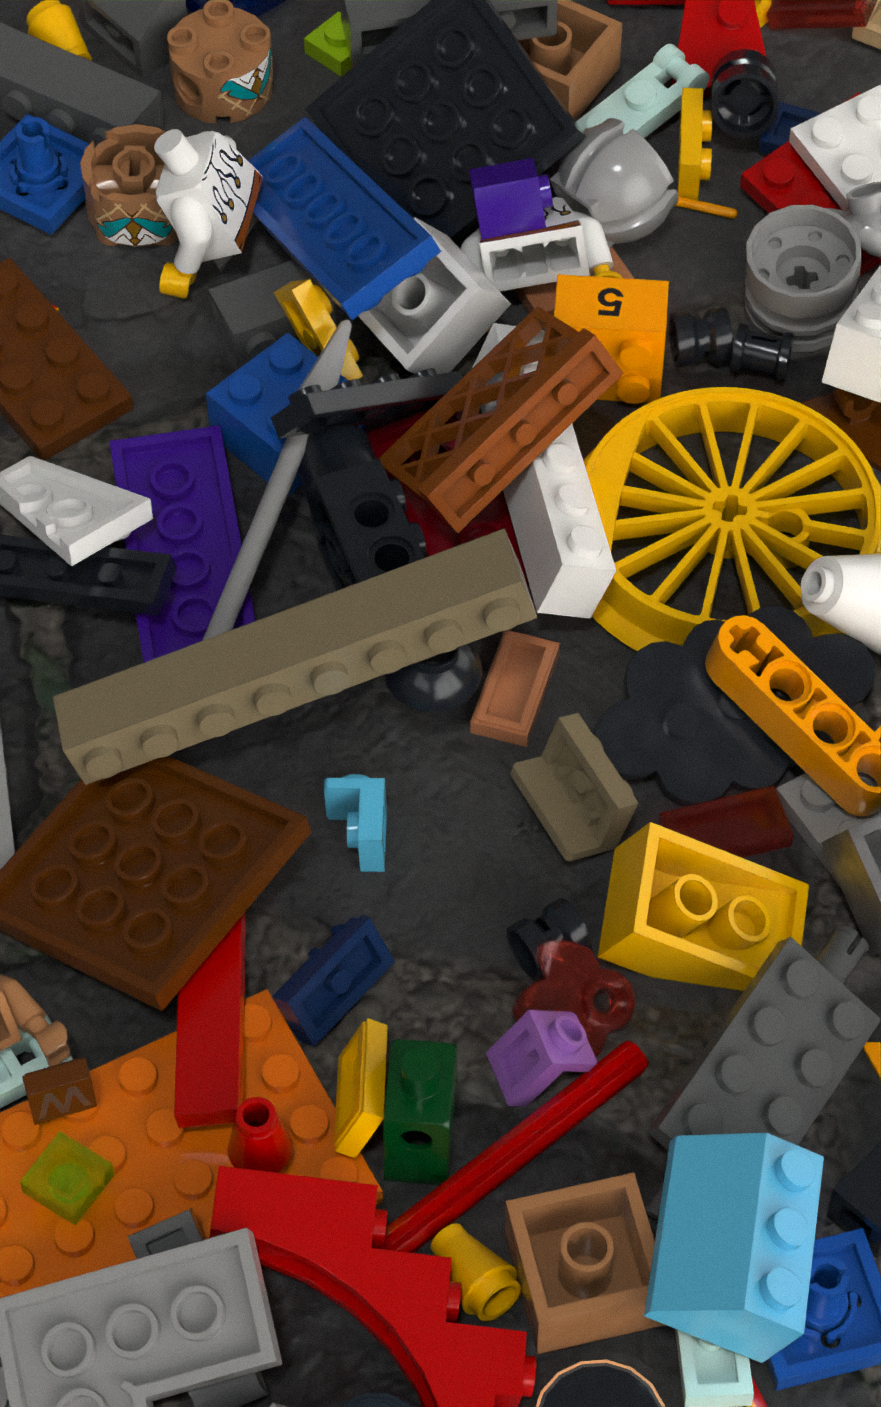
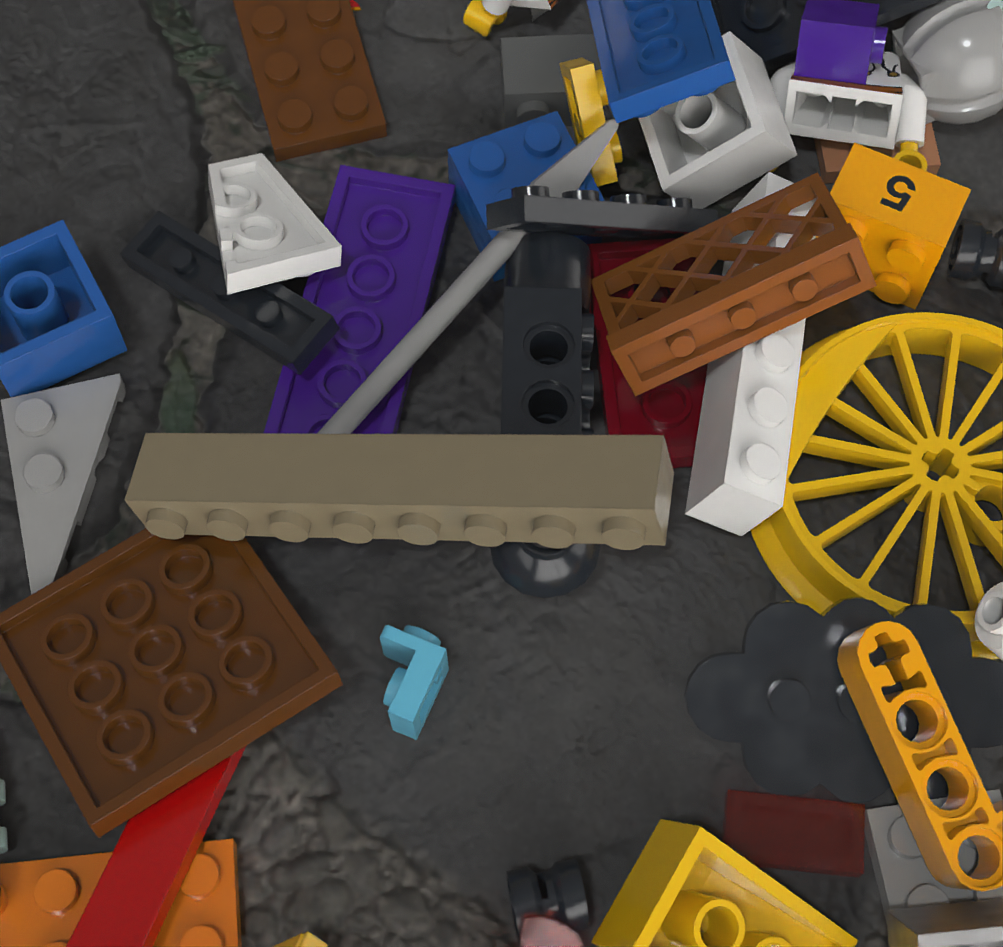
camera: 20 degrees right, 10 degrees up
(333, 979) = (302, 857): dark blue plate -> none
(515, 688) = (634, 587): nougat tile -> none
(576, 791) = (644, 736): dark tan bracket -> none

